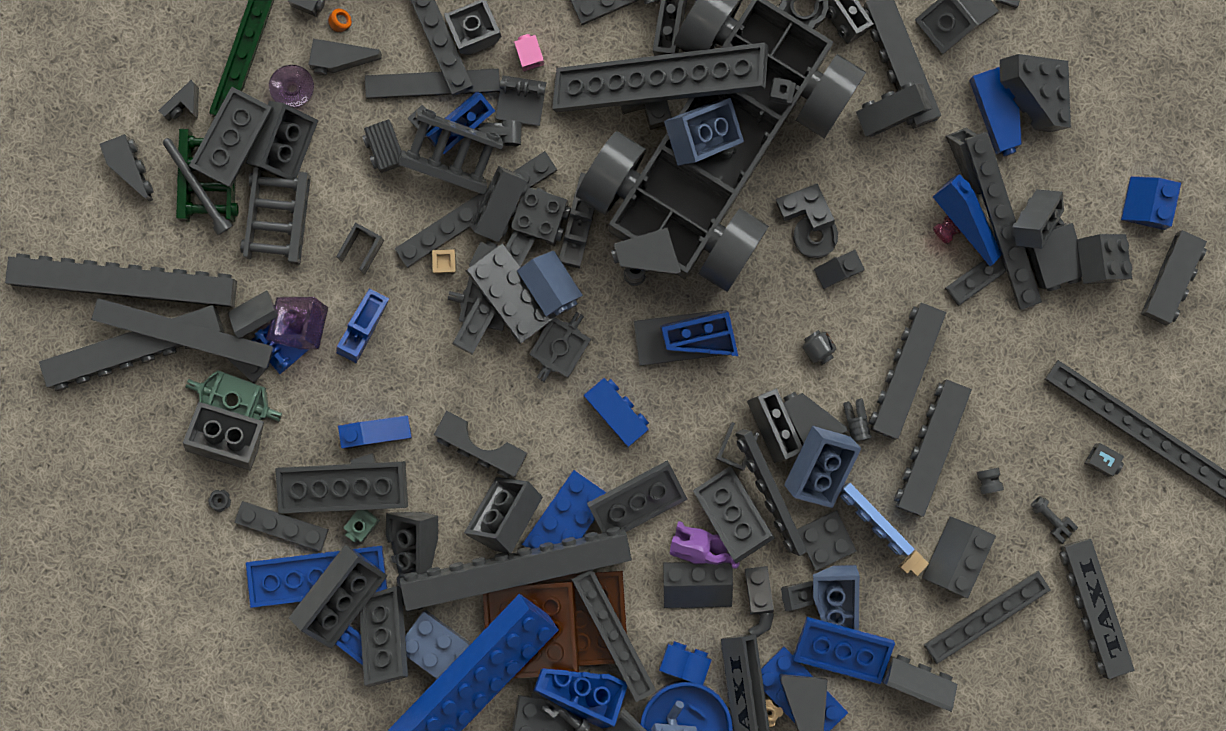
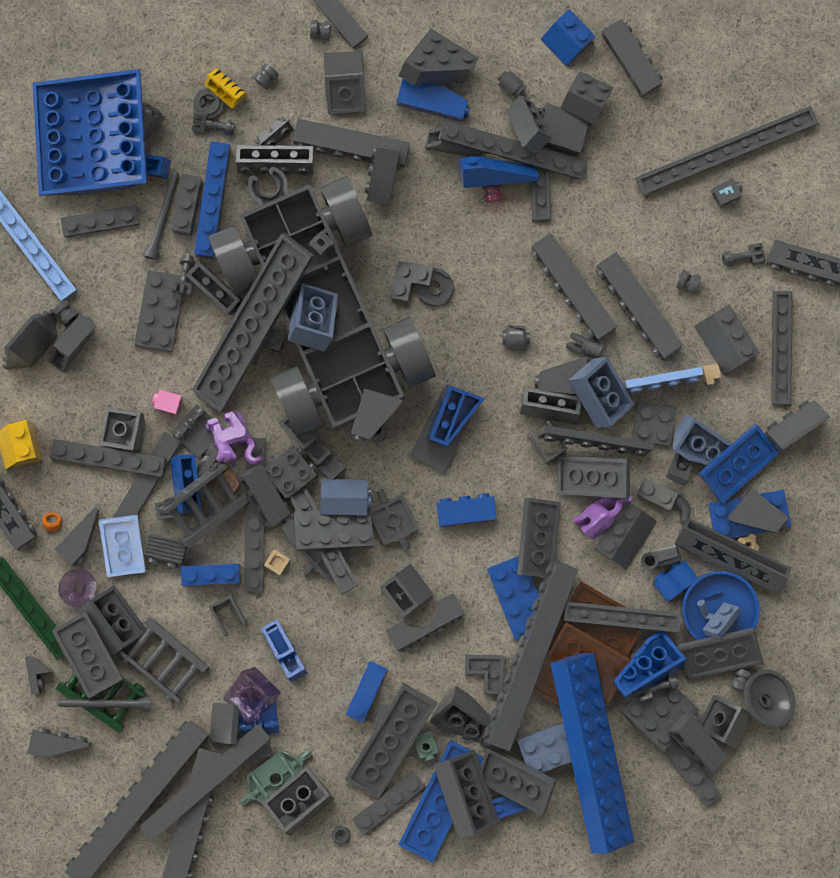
camera: 55 degrees left, 0 degrees up
(360, 101) = (122, 545): none -> light blue plate
(388, 205) = (210, 574): none -> blue brick
(468, 548) = (491, 666): none -> dark grey plate
(494, 161) = (231, 480): none -> nougat tile
(499, 405) = (406, 590): none -> dark grey slope
(504, 514) = (486, 638): dark grey slope -> none
(536, 135) = (232, 436): none -> medium lavender animal
(699, 635) = (662, 557): none -> dark grey piece
(839, 269) = (469, 286): dark grey slope -> none
(1067, 177) = (511, 83): none -> dark grey brick

